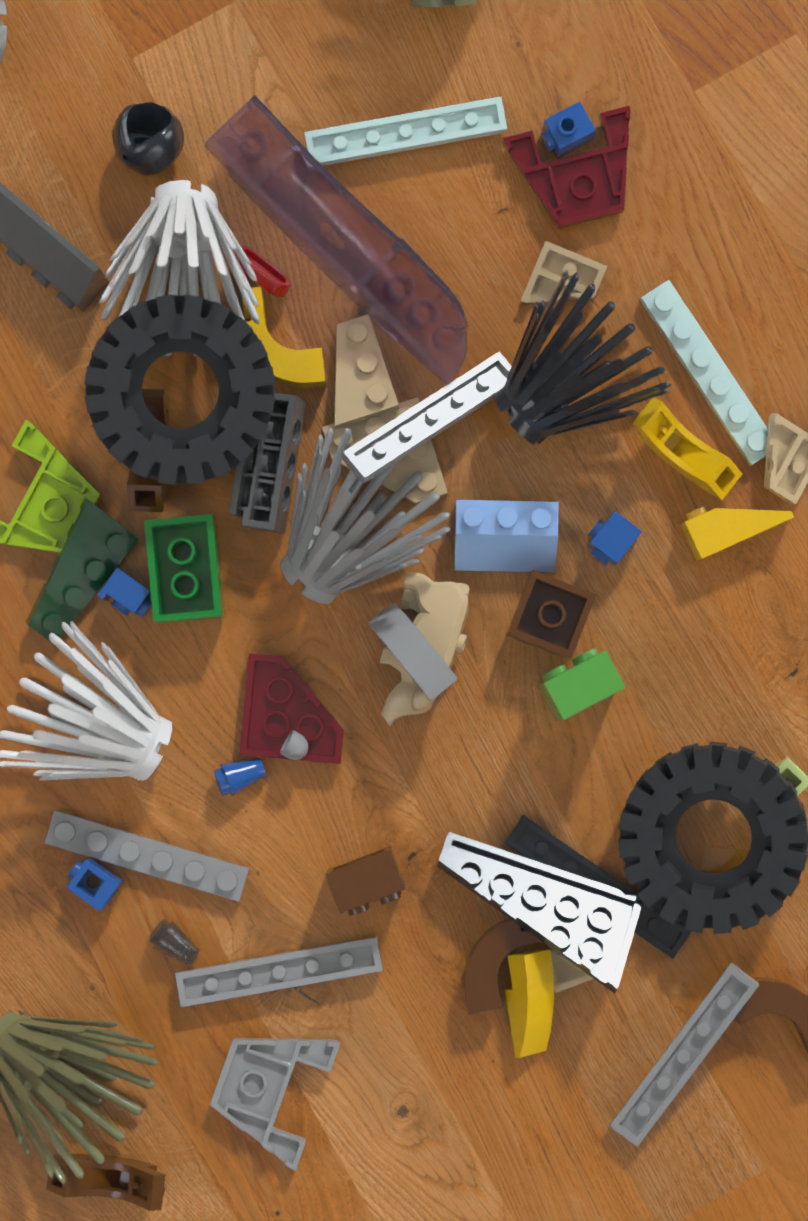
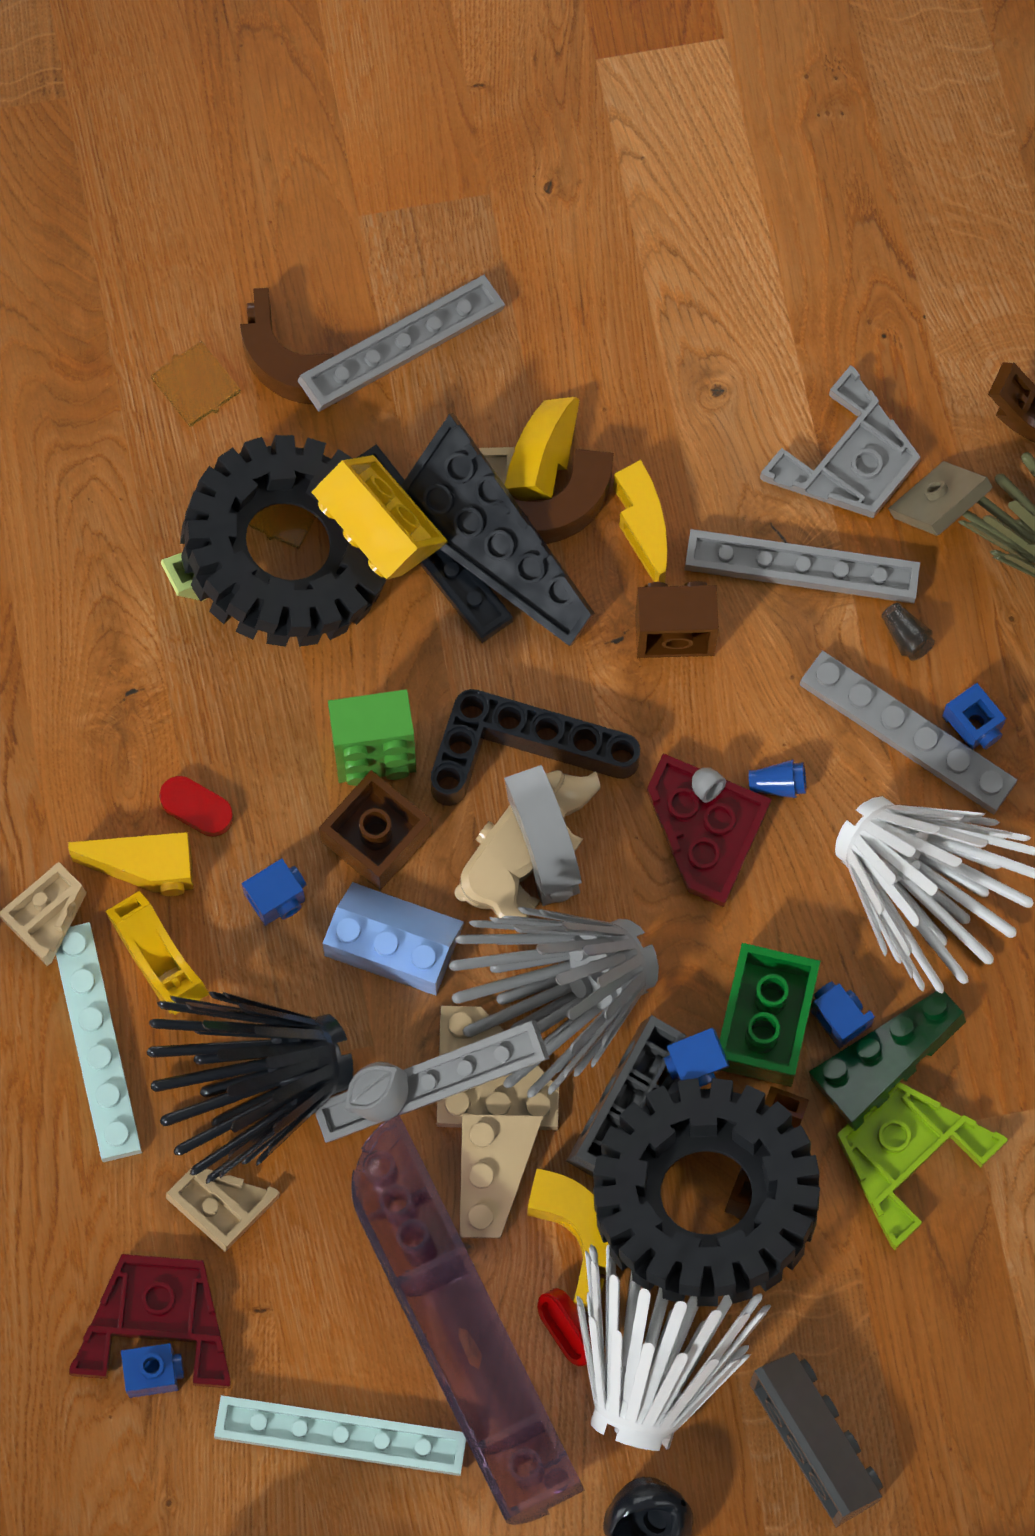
camera: 165 degrees left, 15 degrees down
(180, 1070) = (940, 498): none -> dark tan plate
(224, 502) = (697, 1057): none -> blue brick
(423, 965) = (643, 518): none -> yellow slope
(458, 740) = (524, 738): none -> black beam
(471, 394) = (377, 1092): none -> light grey hat
(644, 879) = (378, 516): none -> yellow slope
(704, 591) = (196, 806): none -> red tile

